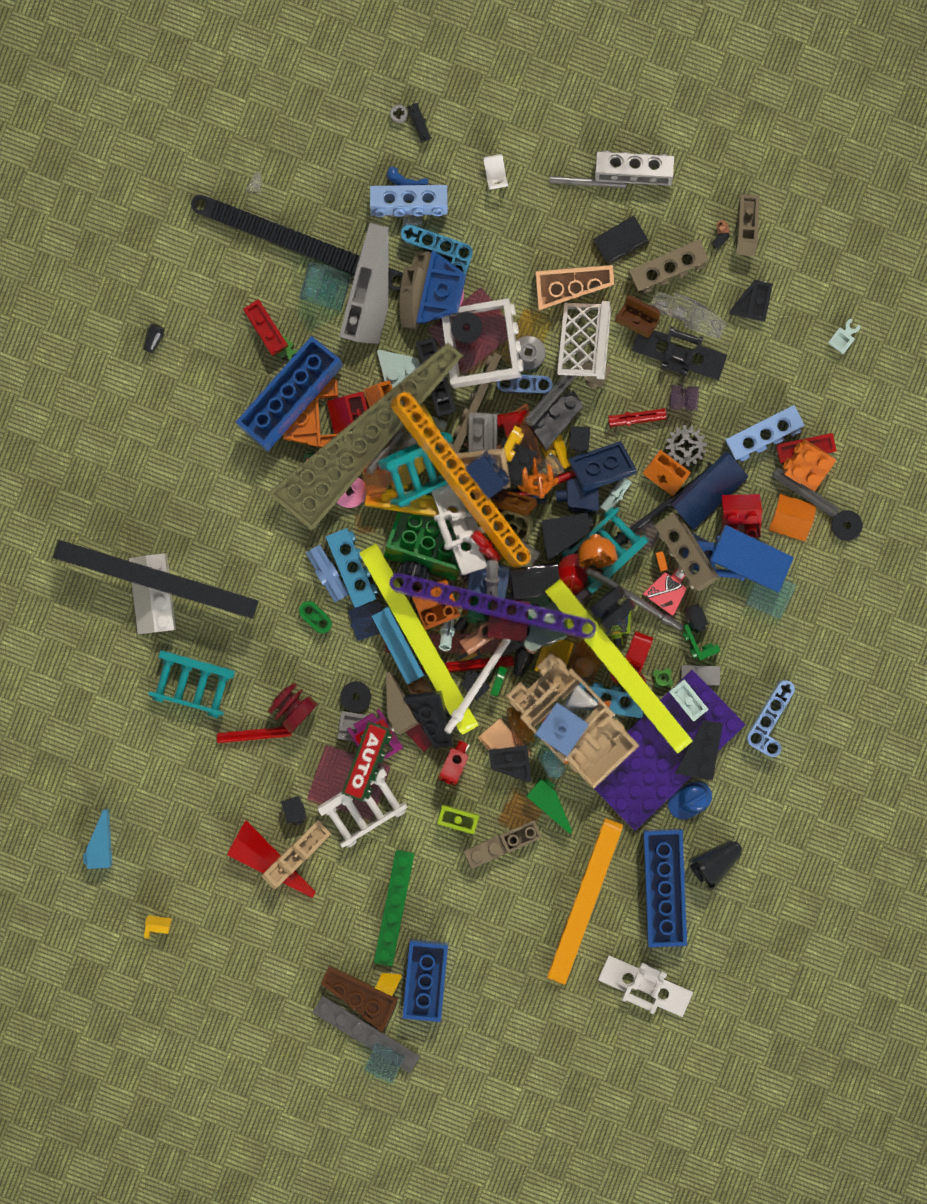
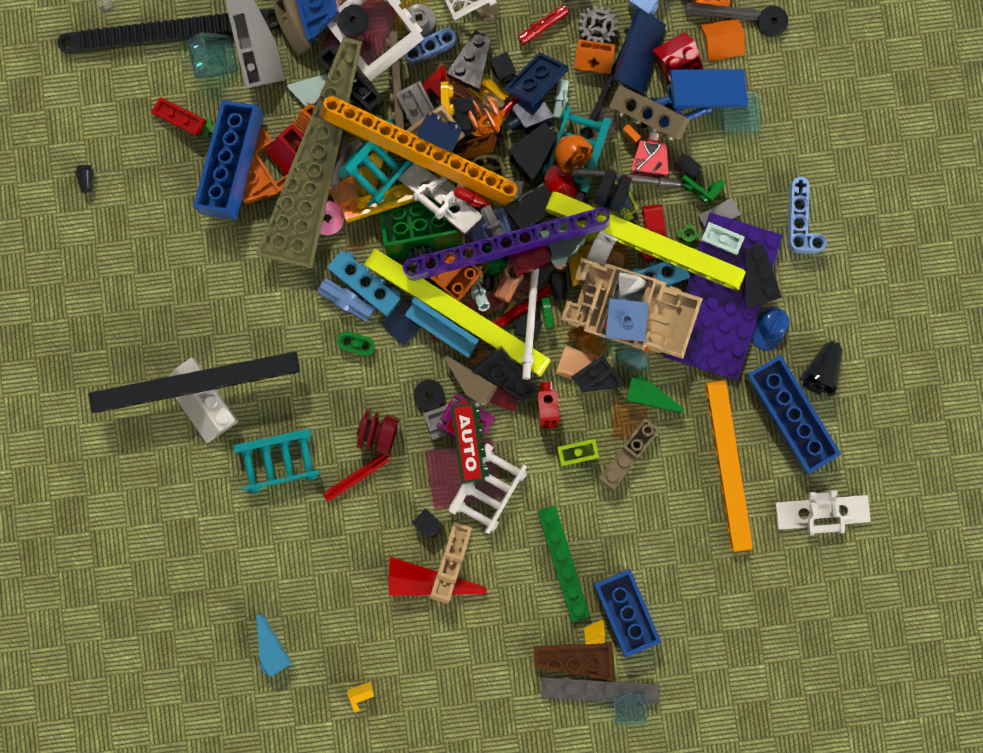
camera: 30 degrees left, 5 degrees down
(548, 400) = (458, 45): dark grey axle -> none
(576, 651) = (601, 248): none -> white bracket

